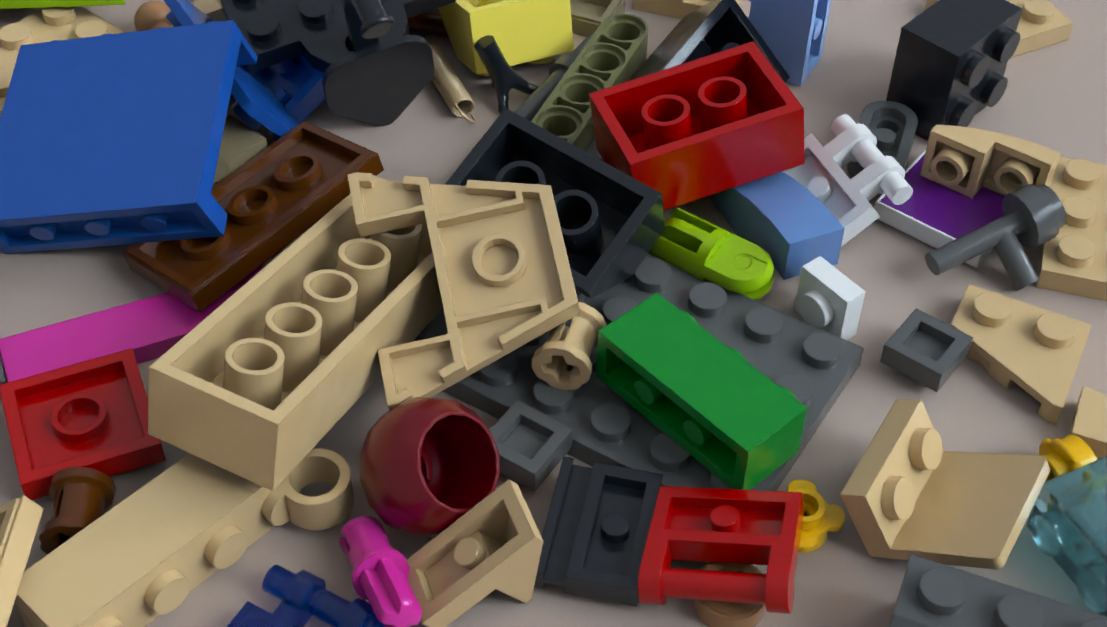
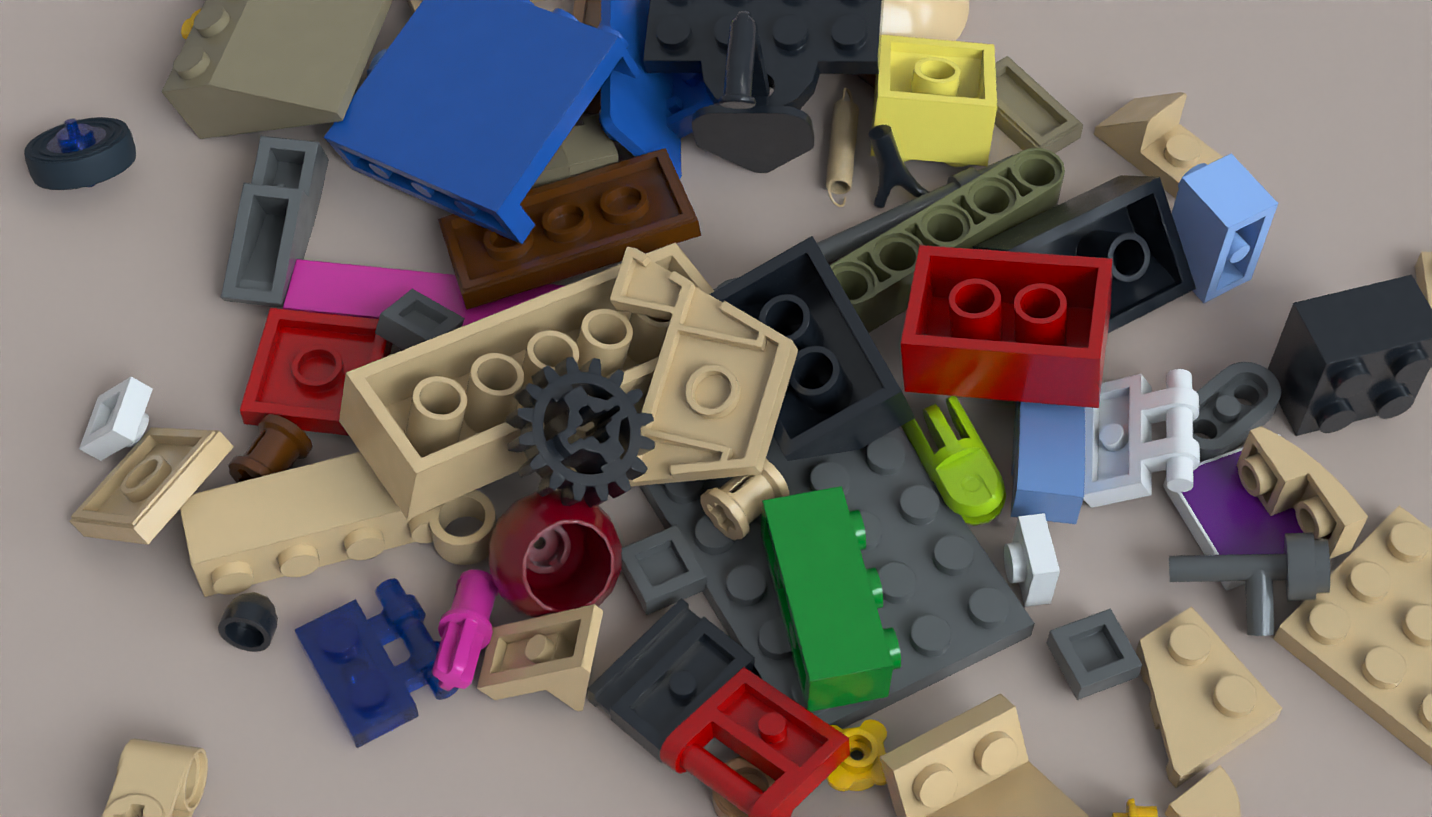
camera: 30 degrees right, 10 degrees up
(155, 334) = (415, 320): none -> dark grey plate
(408, 333) = (604, 457): none -> black gear

